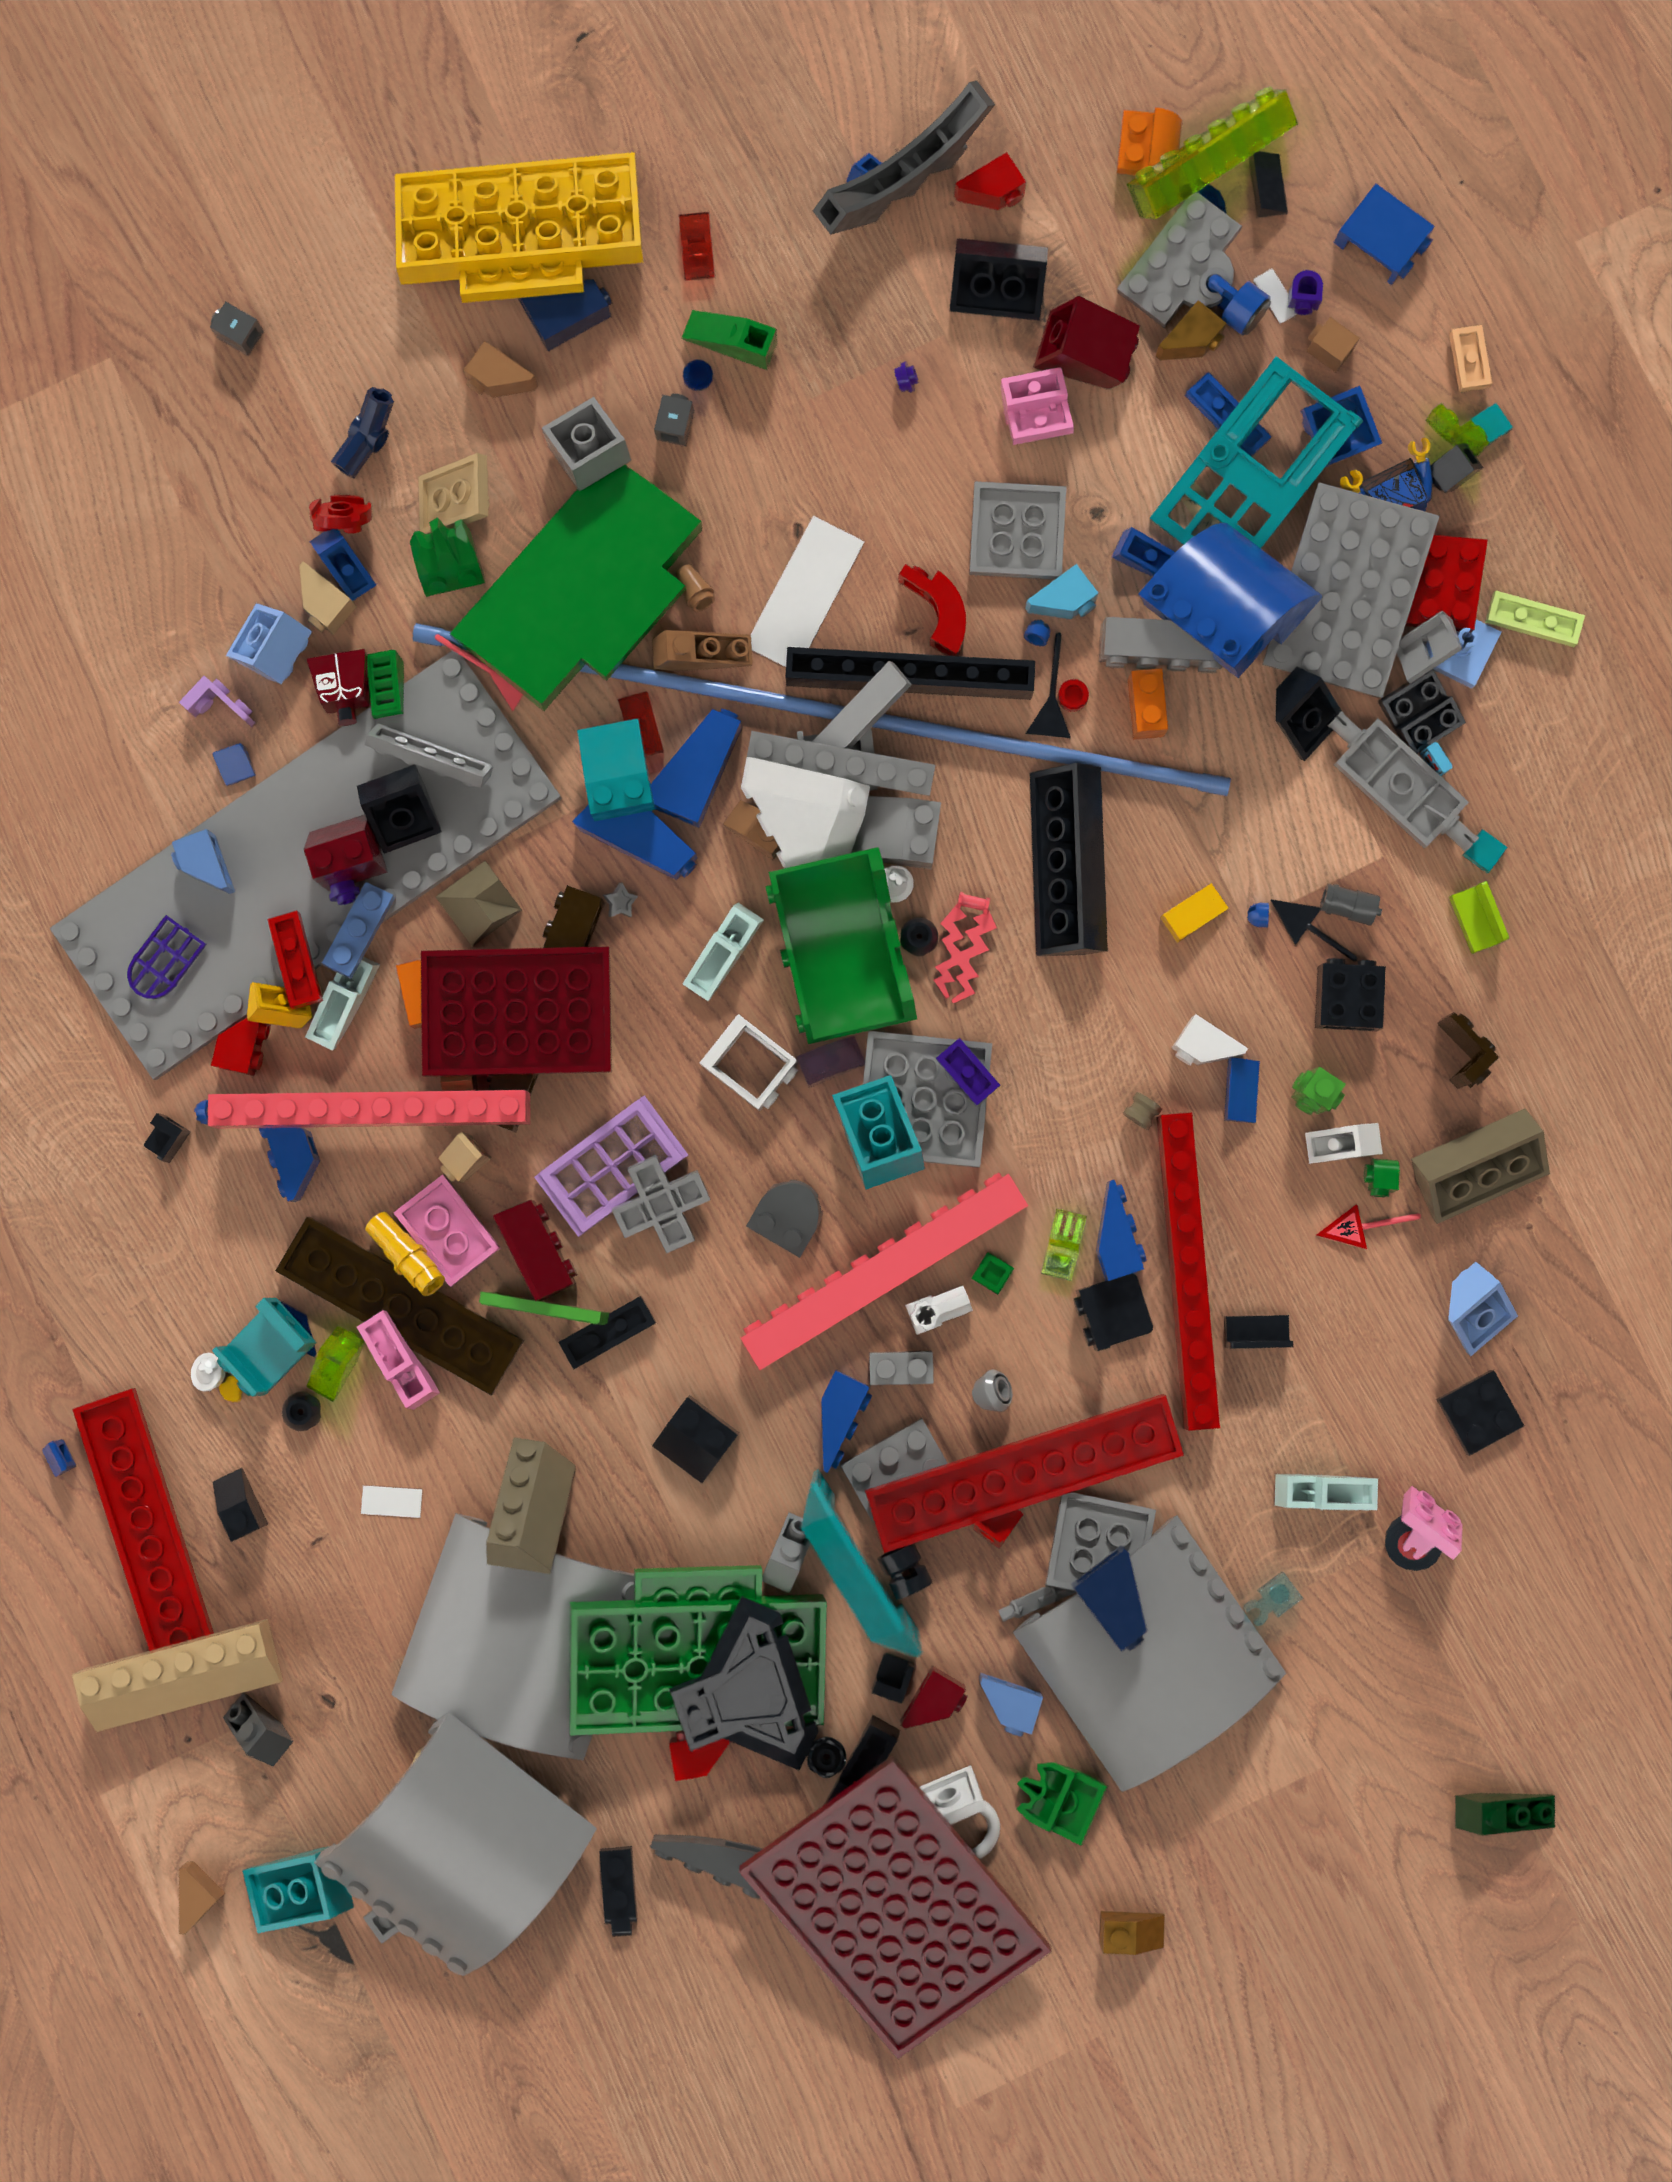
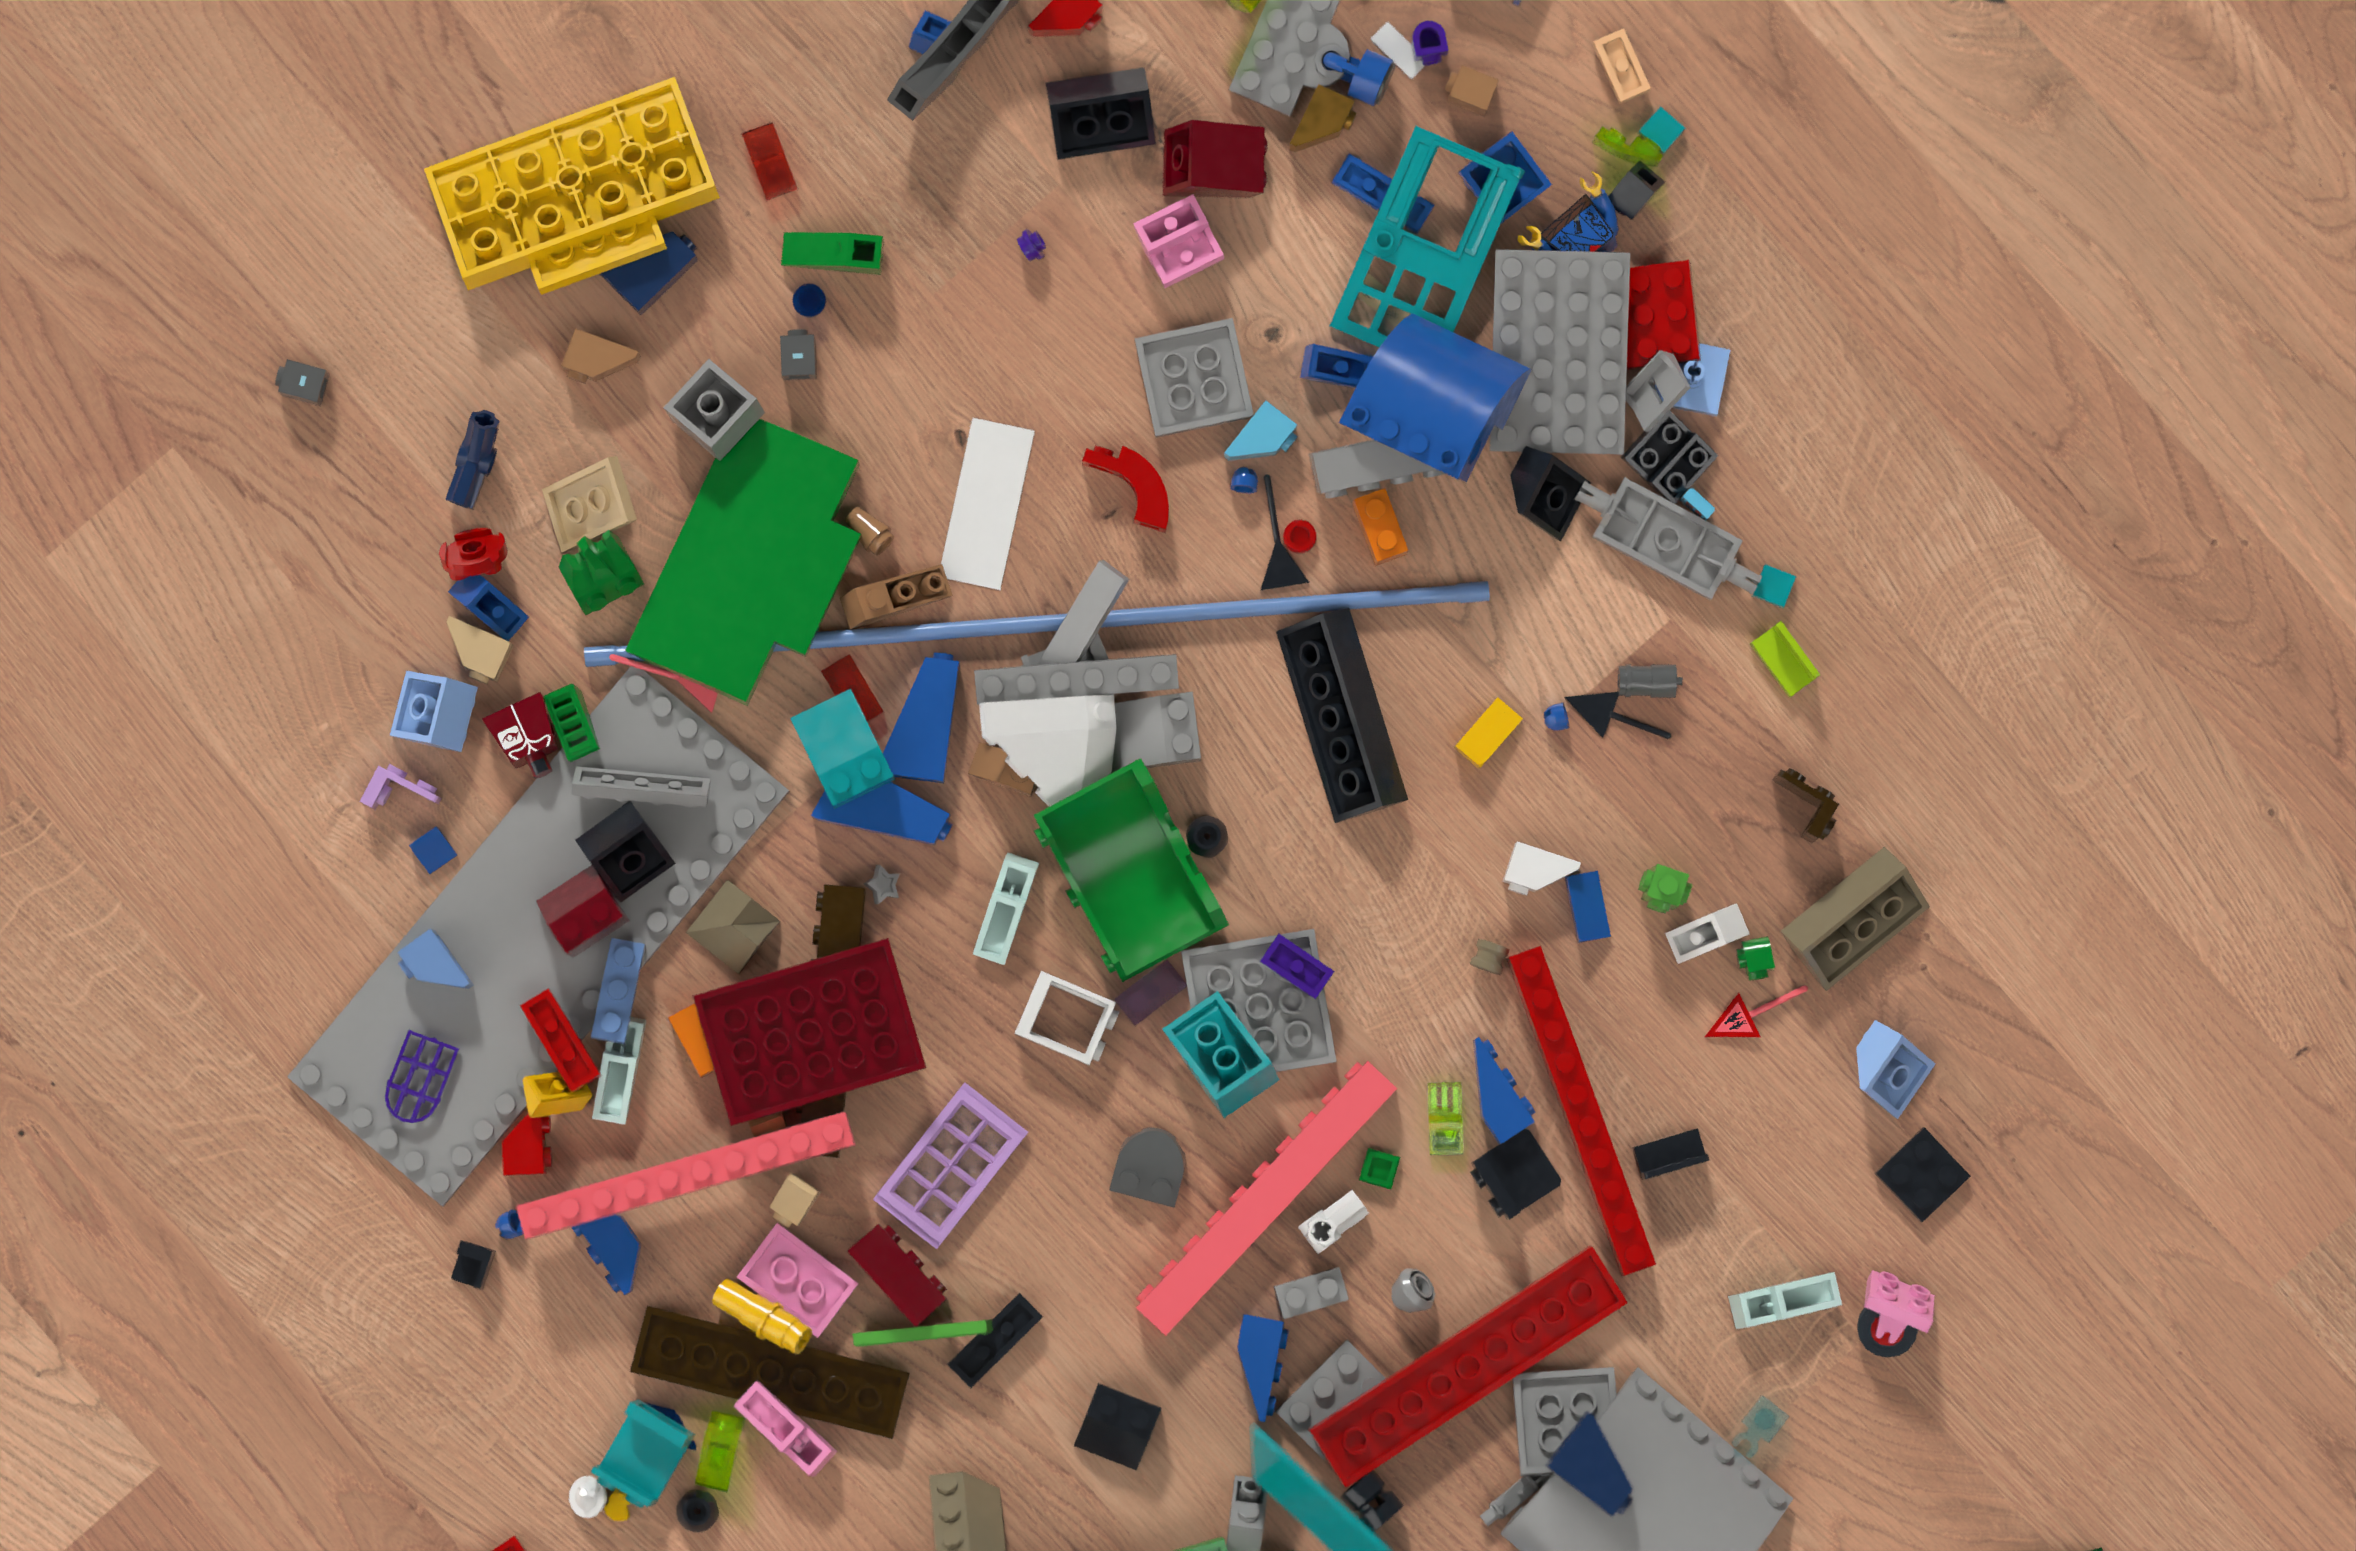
camera: 30 degrees left, 0 degrees up
(344, 892) = (592, 955): dark purple plate -> none
(661, 1204) = (1014, 1191): light grey plate -> none
(899, 883) = (1171, 786): white hat -> none
(925, 672) = (1132, 559): black brick -> none
(962, 958) = (1256, 847): coral piece -> none
(998, 1528) = (1457, 1430): red bracket -> none
(1350, 995) = (1673, 777): black brick -> none
(1535, 618) = (1761, 326): yellowish green plate -> none

